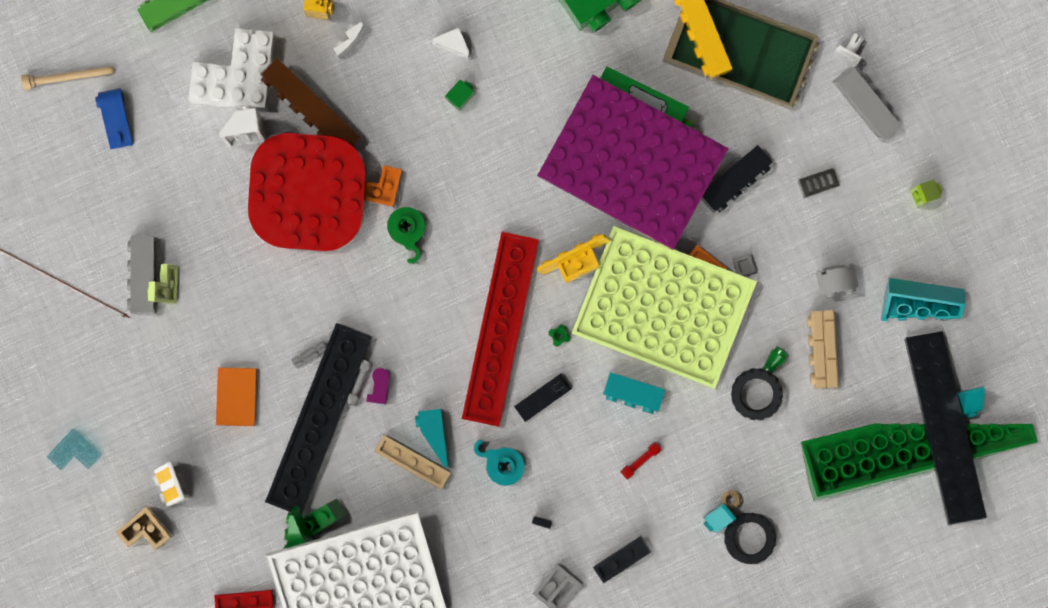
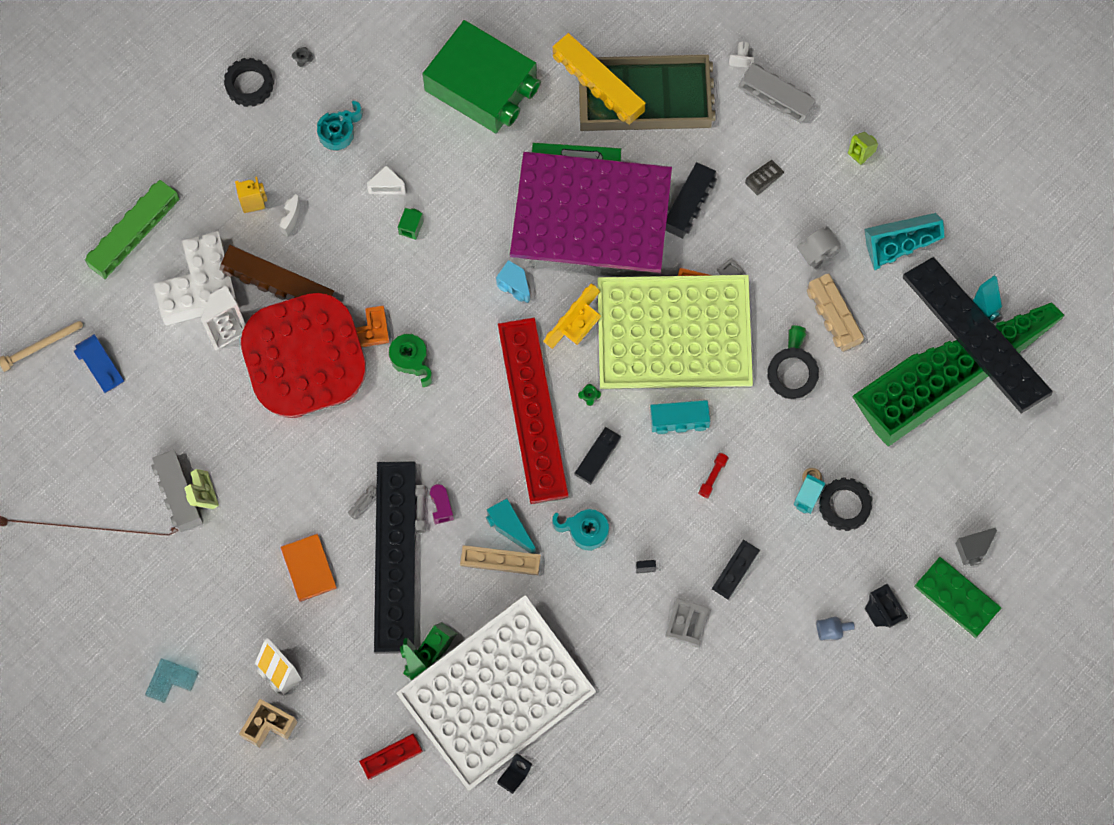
camera: 15 degrees left, 15 degrees down
(535, 194) = (513, 280): none -> medium azure slope

